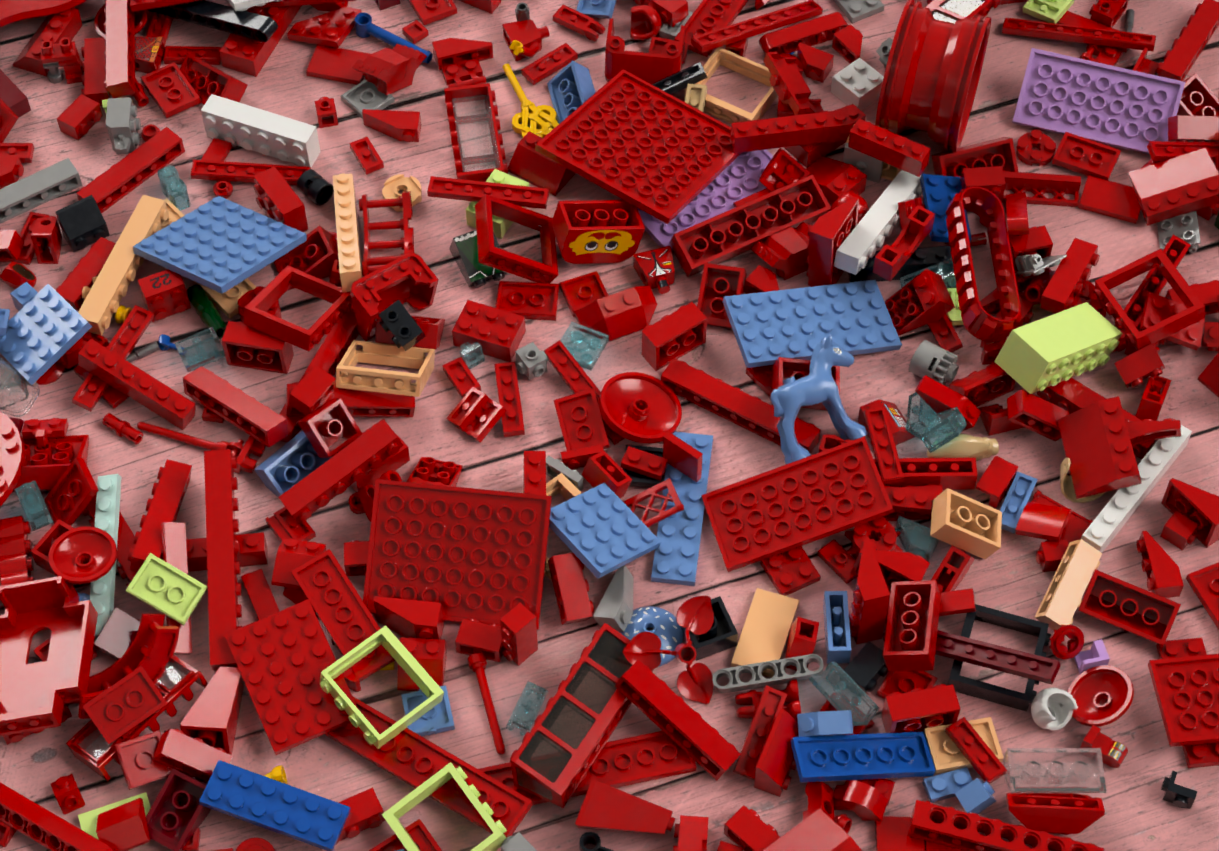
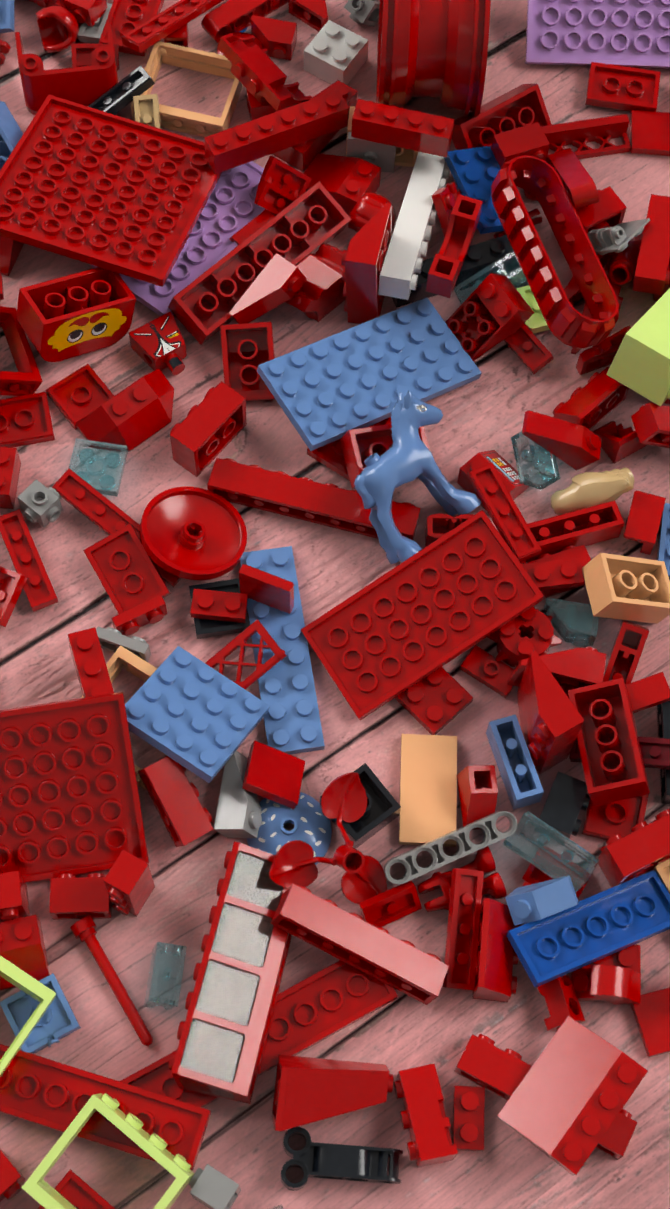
camera: 20 degrees left, 10 degrees up
(603, 469) = (173, 629): red brick -> none
(649, 590) = (273, 774): none -> red tile
(712, 703) = (391, 905): none -> red plate
(749, 245) = (270, 289): none -> slope
(761, 280) = (294, 333): red slope -> none
(844, 822) = (594, 1020): red plate -> none
(934, 363) = (529, 389): light grey gear -> none
(943, 428) = (566, 472): clear light blue slope -> none
(1039, 140) = (564, 79): red plate -> none

